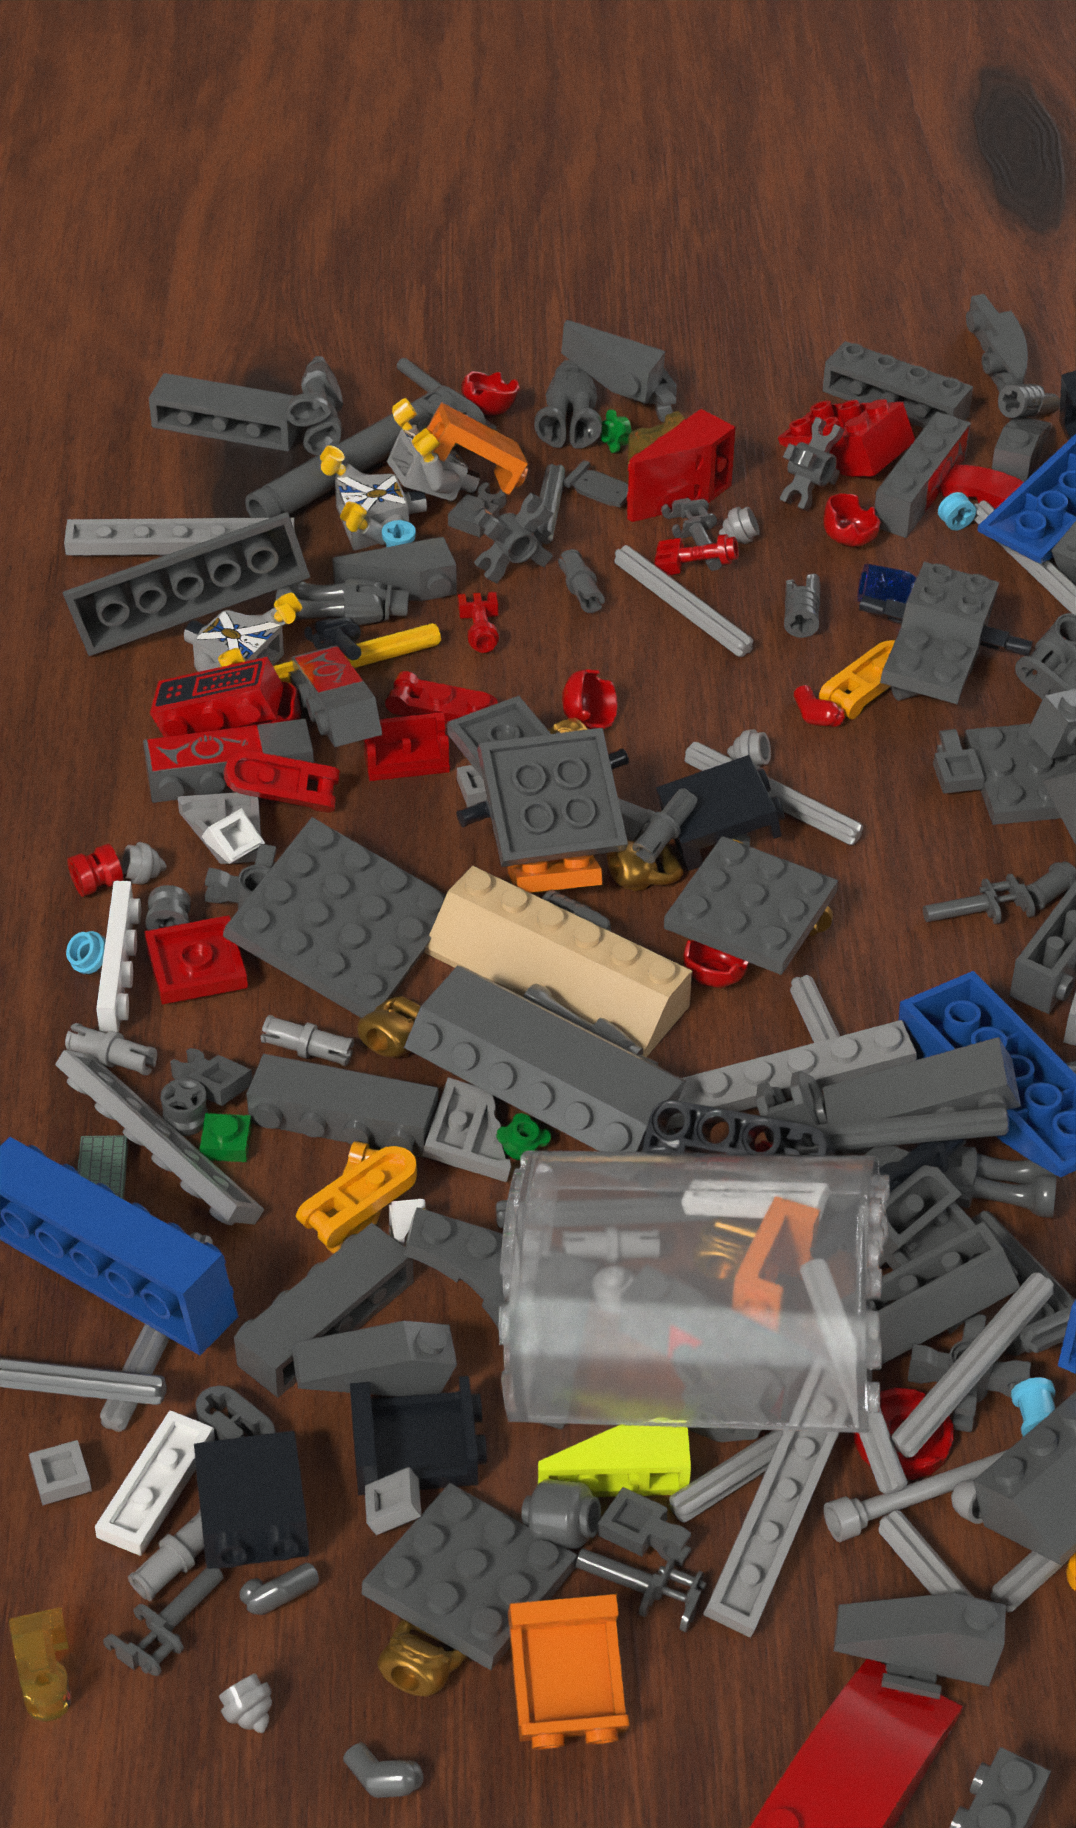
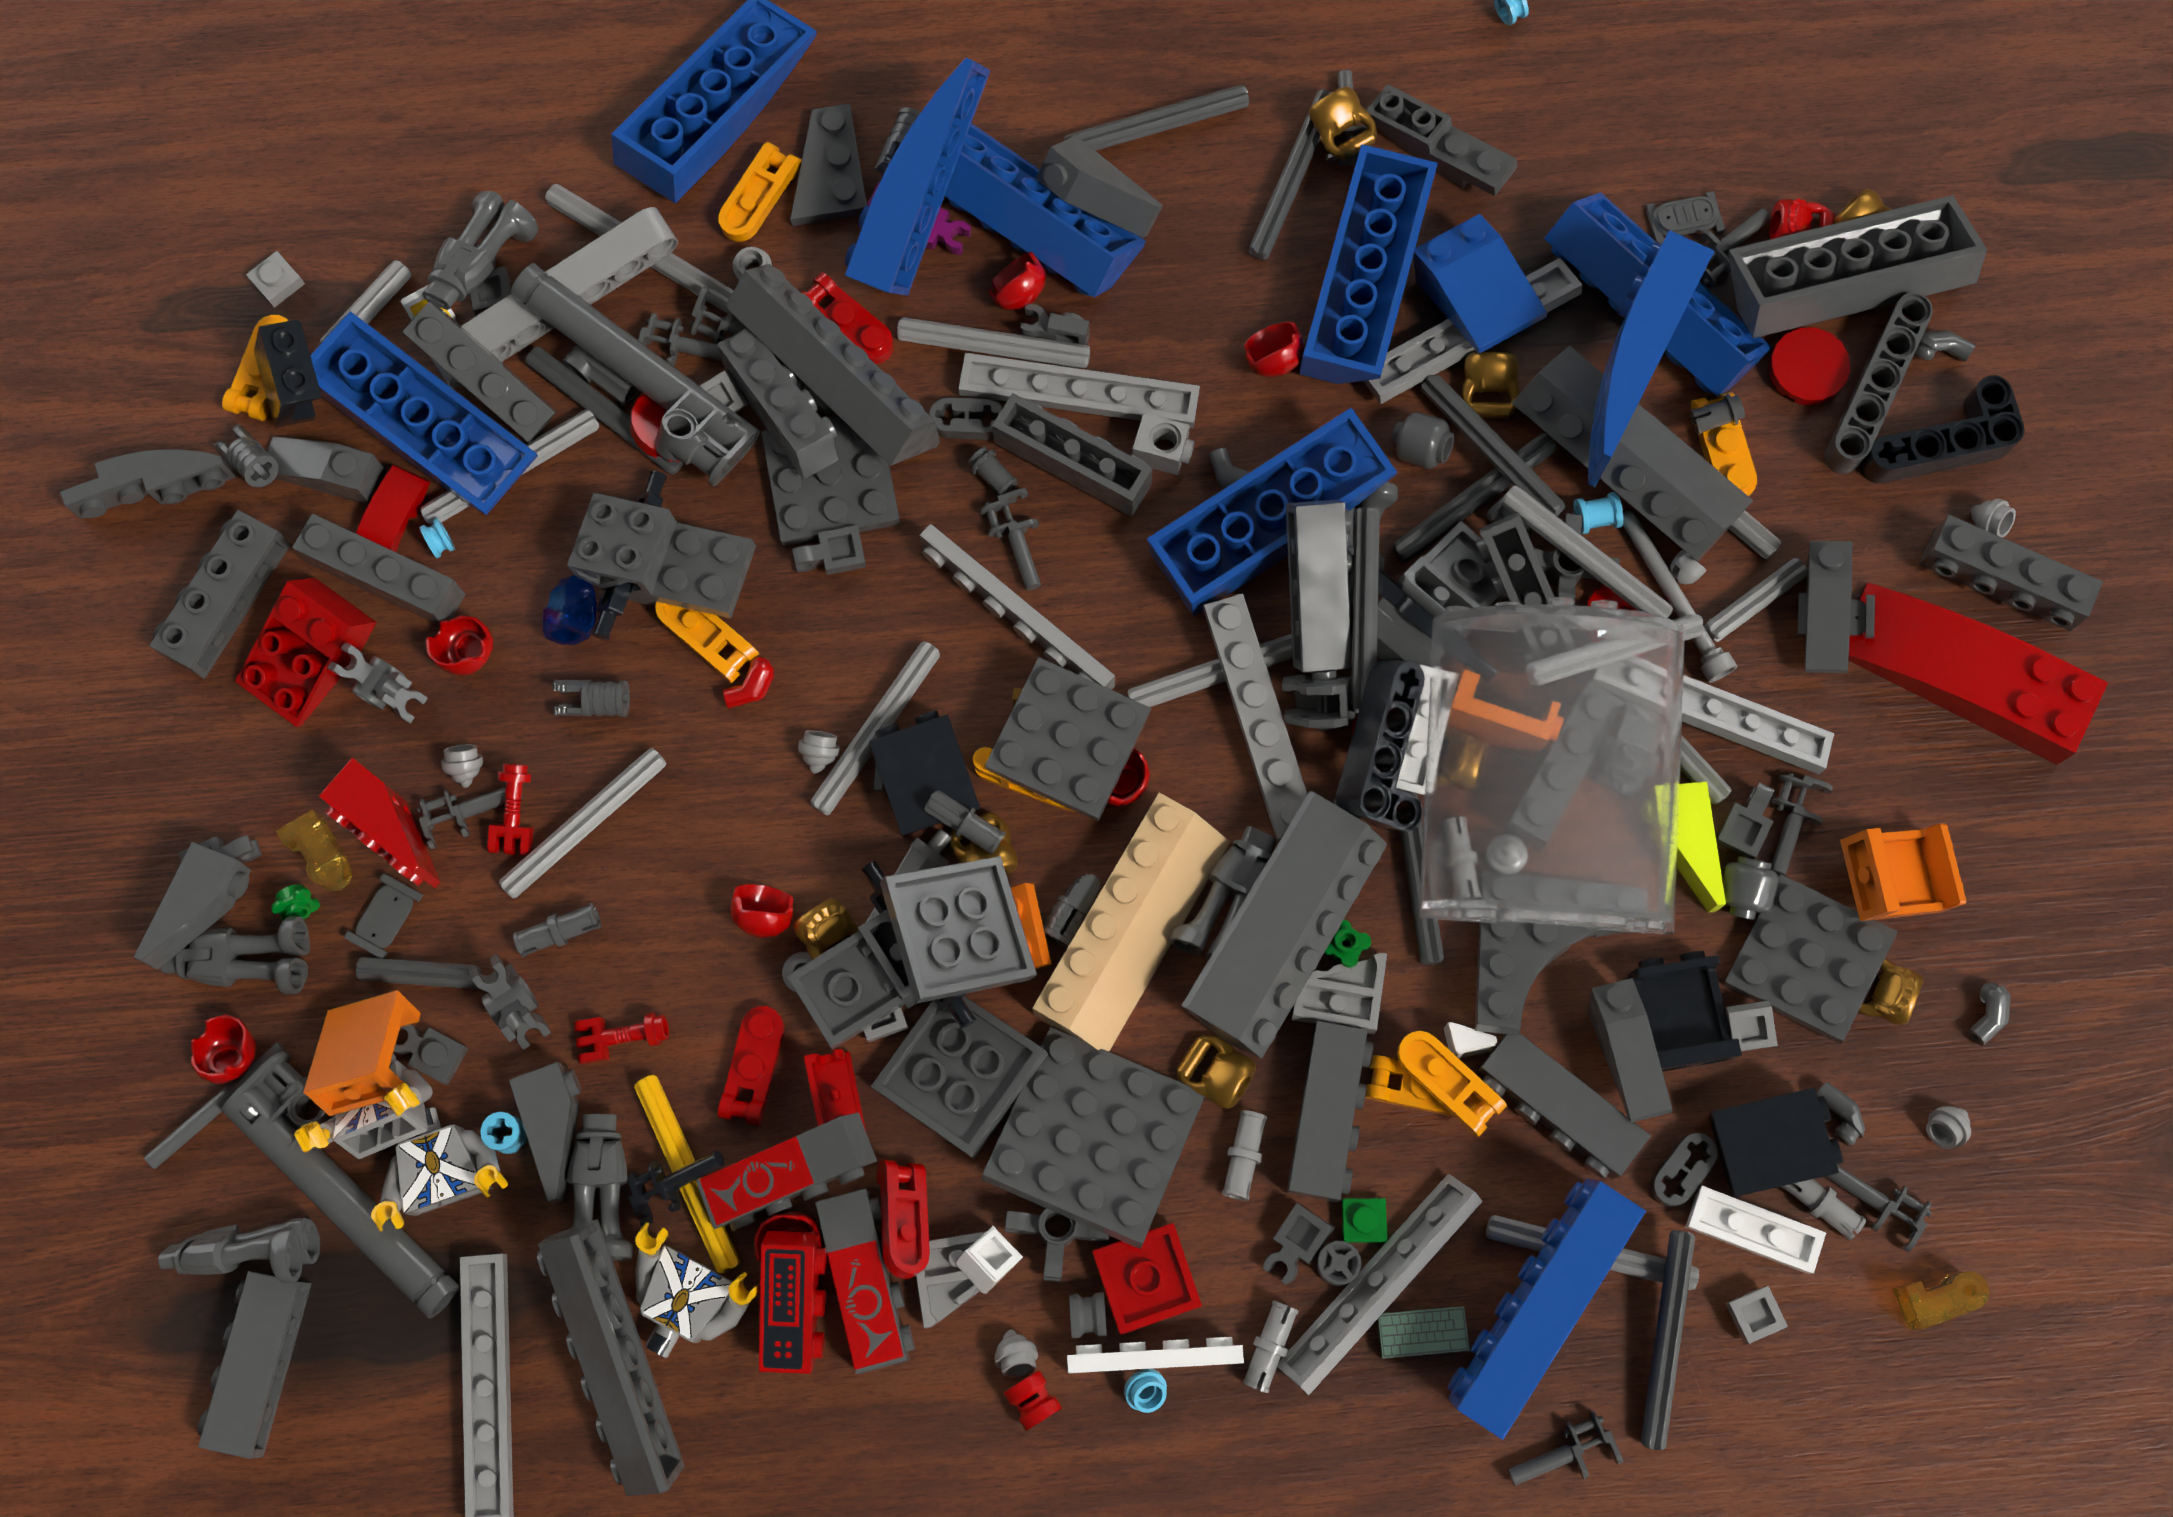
camera: 90 degrees left, 30 degrees up
(415, 828) = (959, 1077): none -> dark grey plate
(894, 894) = (1003, 601): none -> light grey plate

